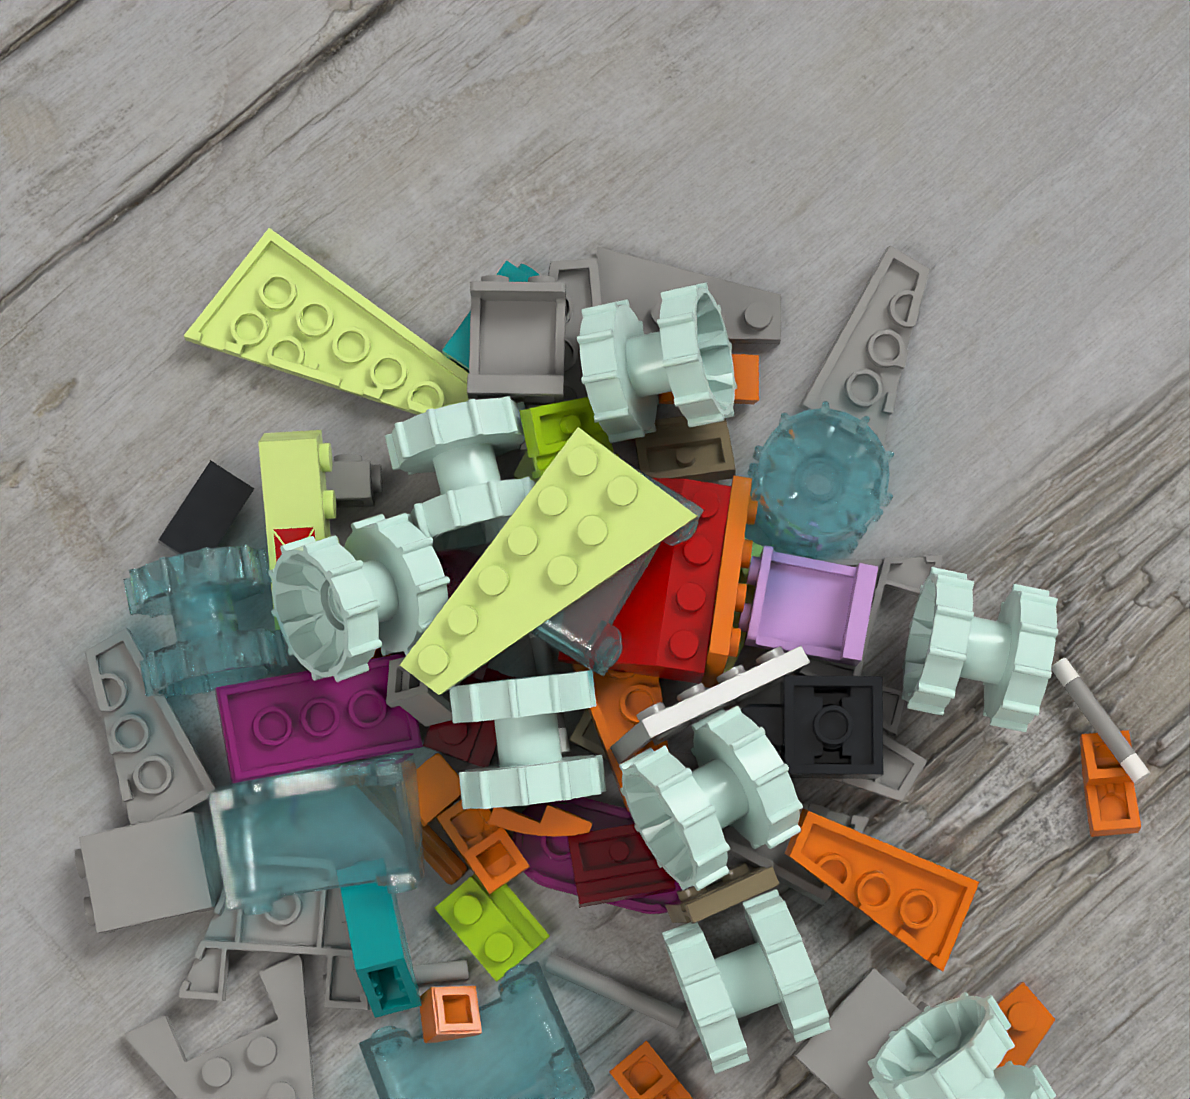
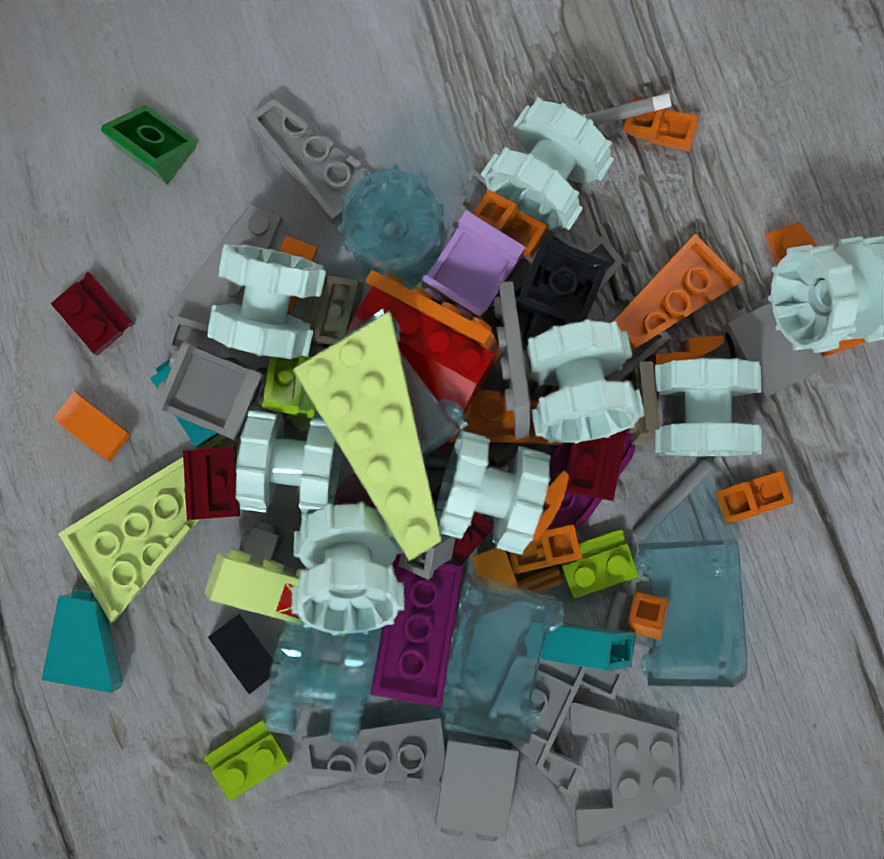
camera: 65 degrees left, 5 degrees up
(75, 572) = (247, 760): none -> lime plate
(143, 312) = (82, 645): none -> teal slope
(403, 387) = (211, 483): none -> dark red plate
(418, 214) = (92, 426): none -> orange slope
(561, 157) = (92, 313): none -> dark red plate
(810, 140) = (150, 141): none -> green slope
(823, 942) = (692, 349): none -> orange slope
(890, 631) = (509, 220): none -> orange slope

